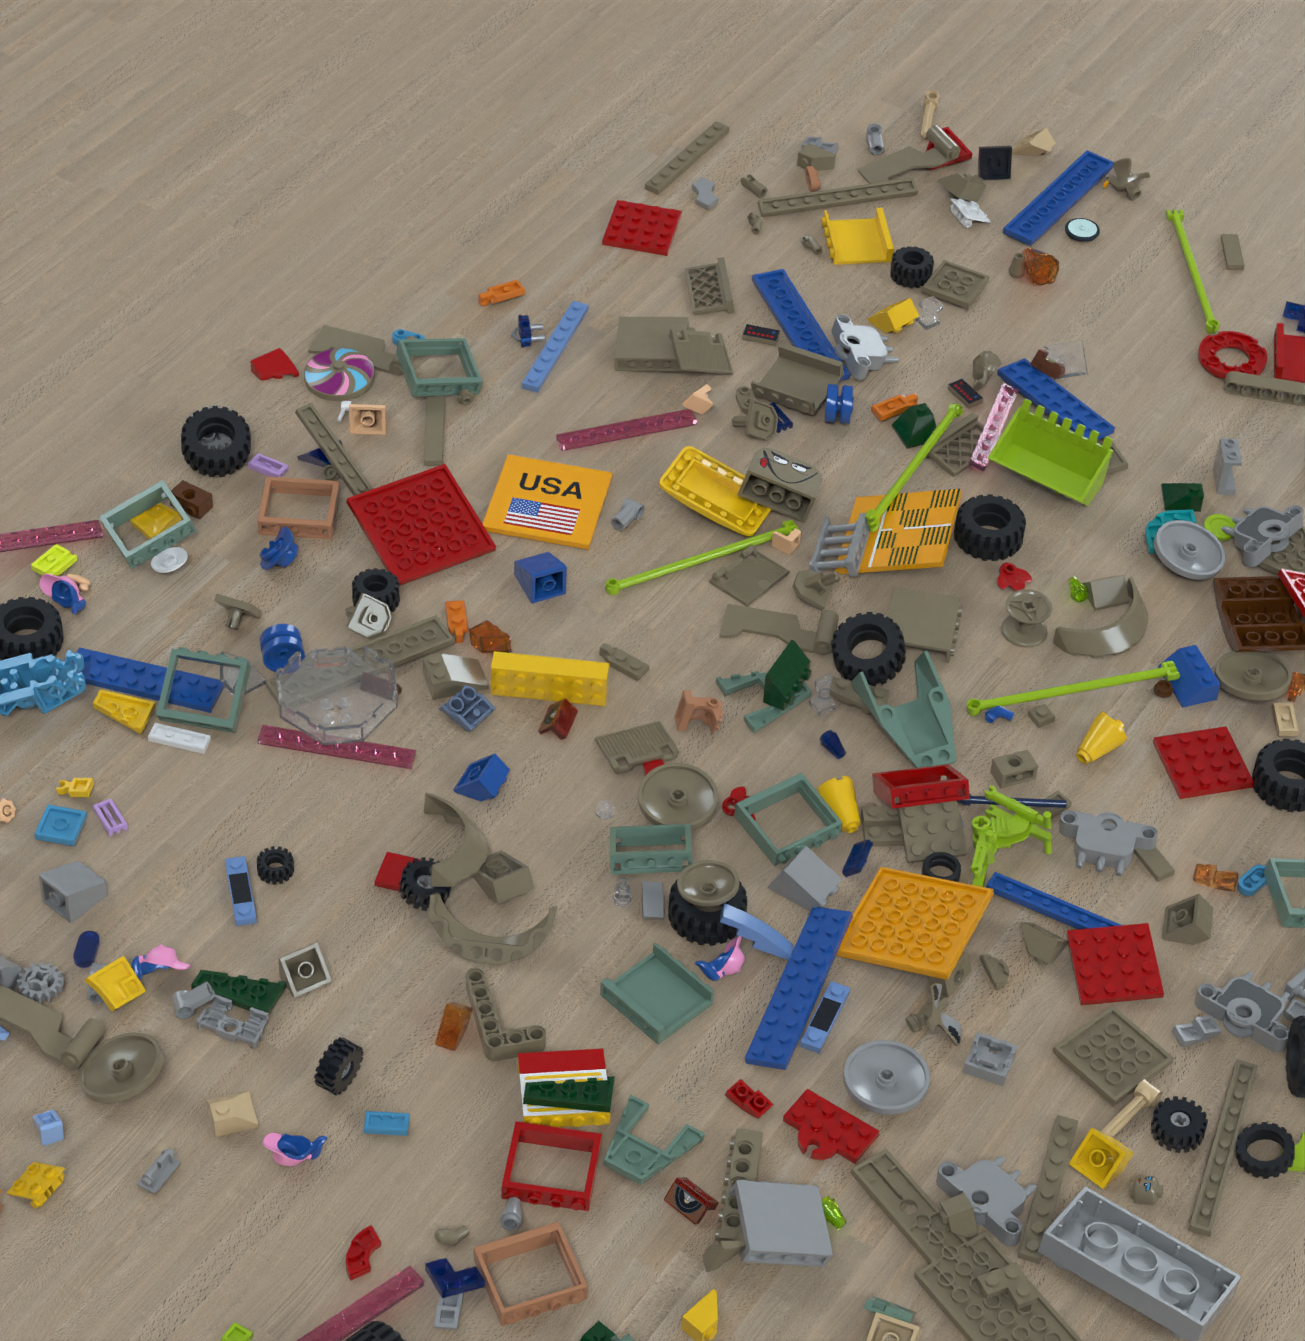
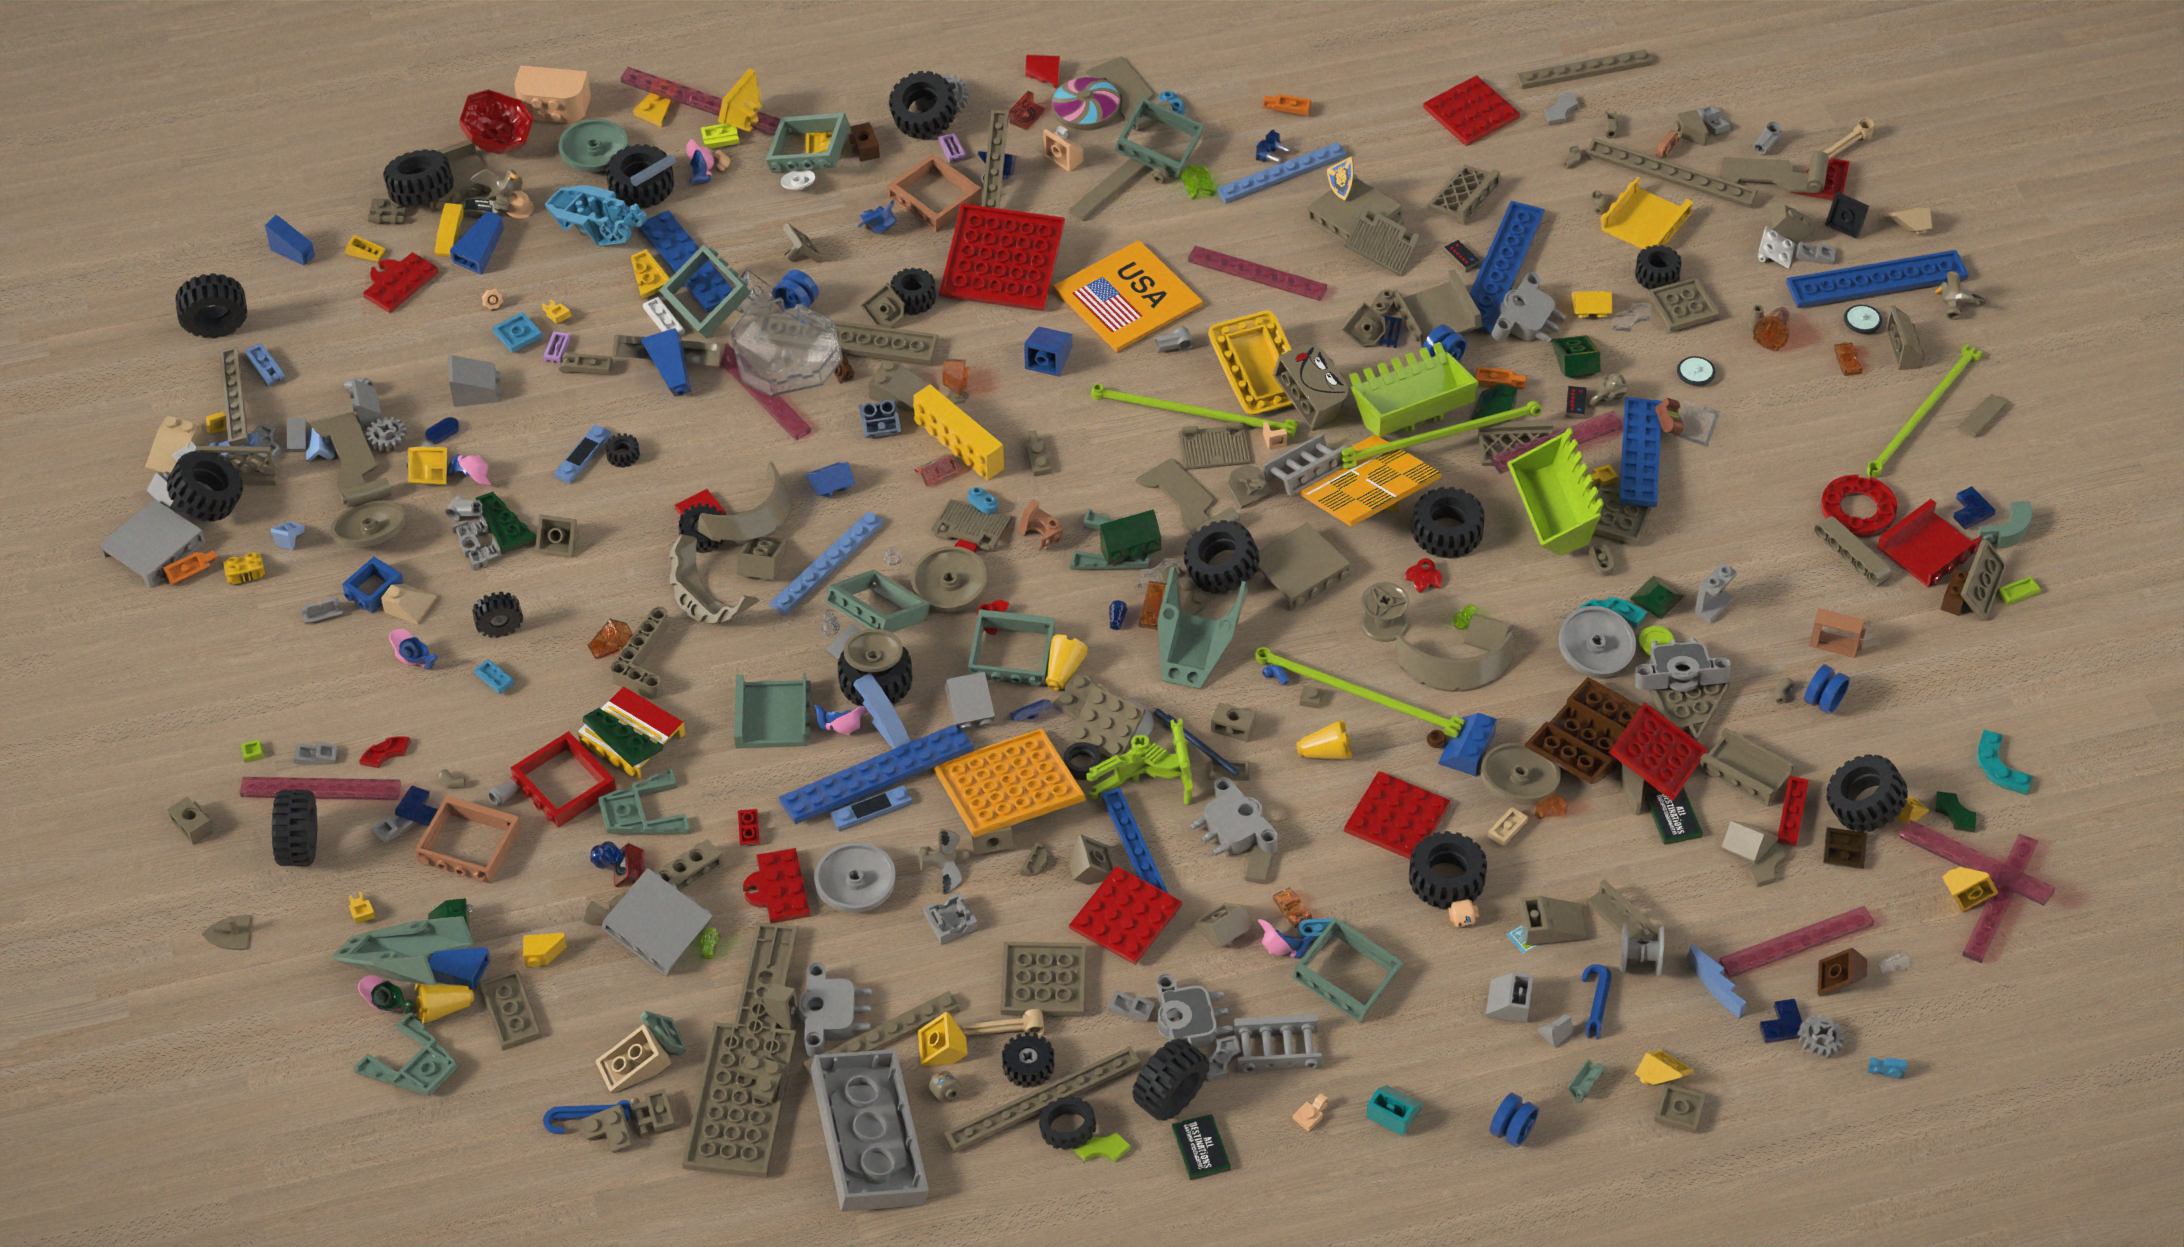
camera: 45 degrees right, 5 degrees up
(45, 616) = (653, 170): none -> sand blue axle
(58, 520) = (742, 103): none -> yellow piece
(155, 814) = (585, 363): none -> dark tan plate
(178, 1101) = (381, 570): none -> blue window
(232, 753) = (694, 351): none -> dark tan windscreen
(234, 765) = (669, 357): none -> blue slope
(295, 402) = (1025, 111): none -> clear red panel
(304, 1297) = (315, 755): none -> light grey slope
(456, 619) = (953, 347): orange hinge -> none
(500, 386) = (1198, 181): none -> clear neon green bracket
(557, 849) = (826, 563): none -> medium blue plate
(624, 319) = (1342, 177): none -> shield
(624, 722) = (983, 500): none -> dark azure plate
(665, 1202) = (605, 855): none -> clear blue piece
(699, 400) = (1336, 279): light nougat slope -> none
(856, 720) = (1152, 605): none -> clear orange slope
(860, 445) = (1412, 392): none -> lime piece
(920, 786) = (1165, 689): red window -> none
(930, 359) = (1577, 356): none -> dark green slope
(999, 202) = (1820, 254): none -> light grey slope
(1019, 325) = (1696, 371): none -> light aqua wheel
(1102, 260) = (1847, 359): none -> clear orange slope
(1117, 492) = (1603, 562): none -> dark tan plate
(1128, 228) = (1903, 340): none -> dark tan slope
(1244, 907) = (1281, 945): none -> bright pink hair

